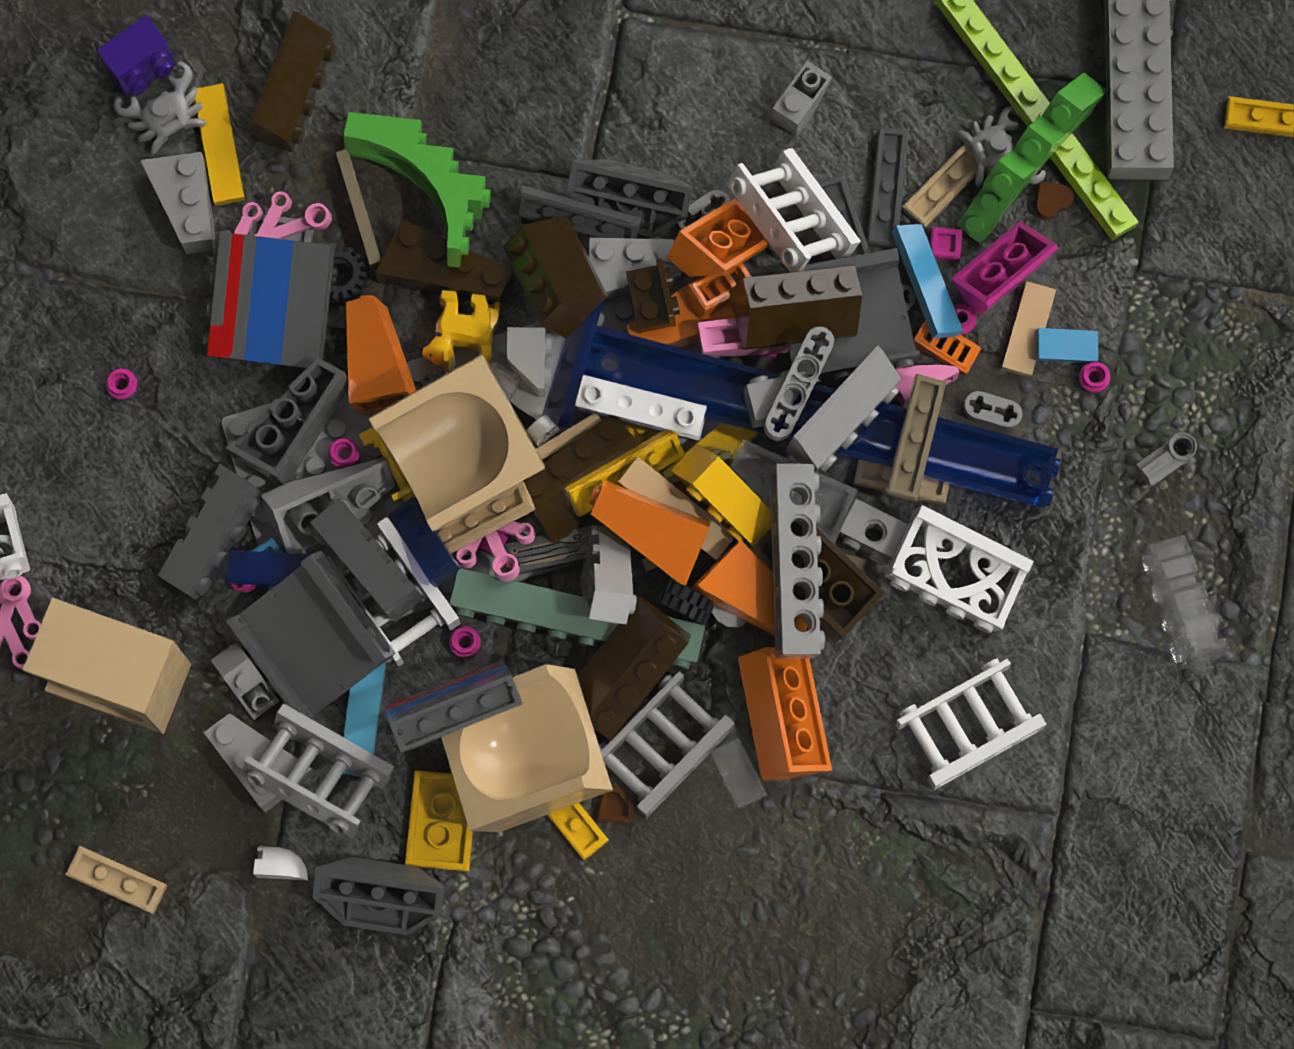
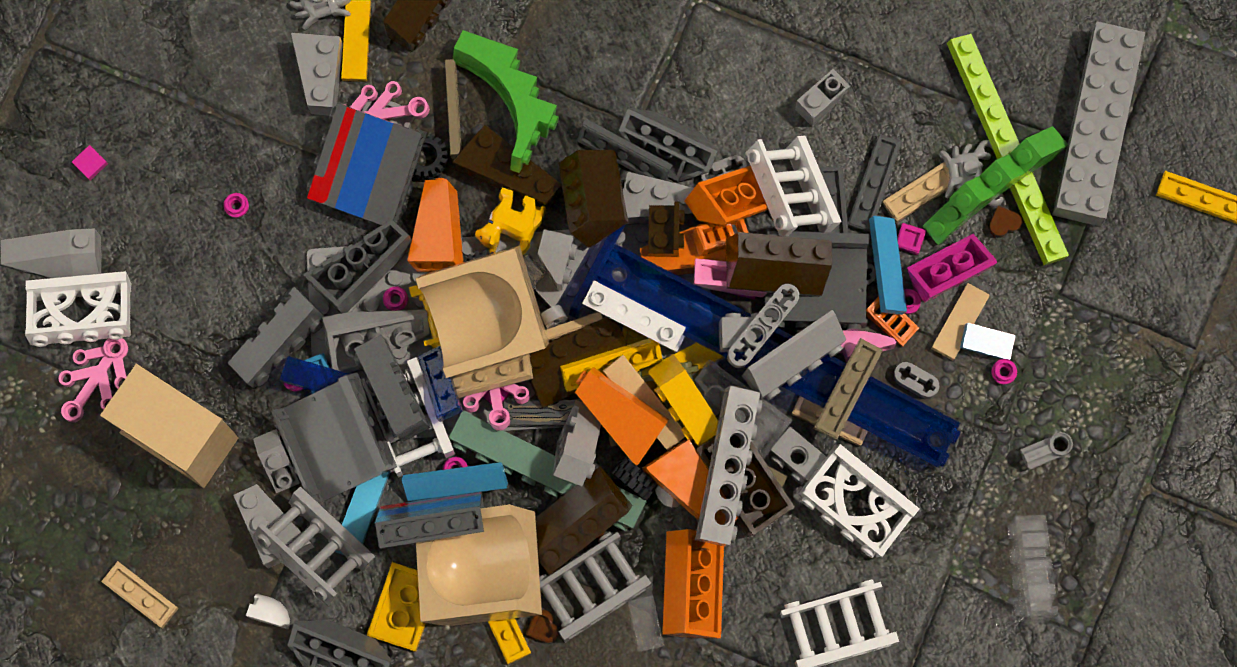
camera: 15 degrees right, 0 degrees up
(468, 655) = (454, 481): none -> dark azure tile

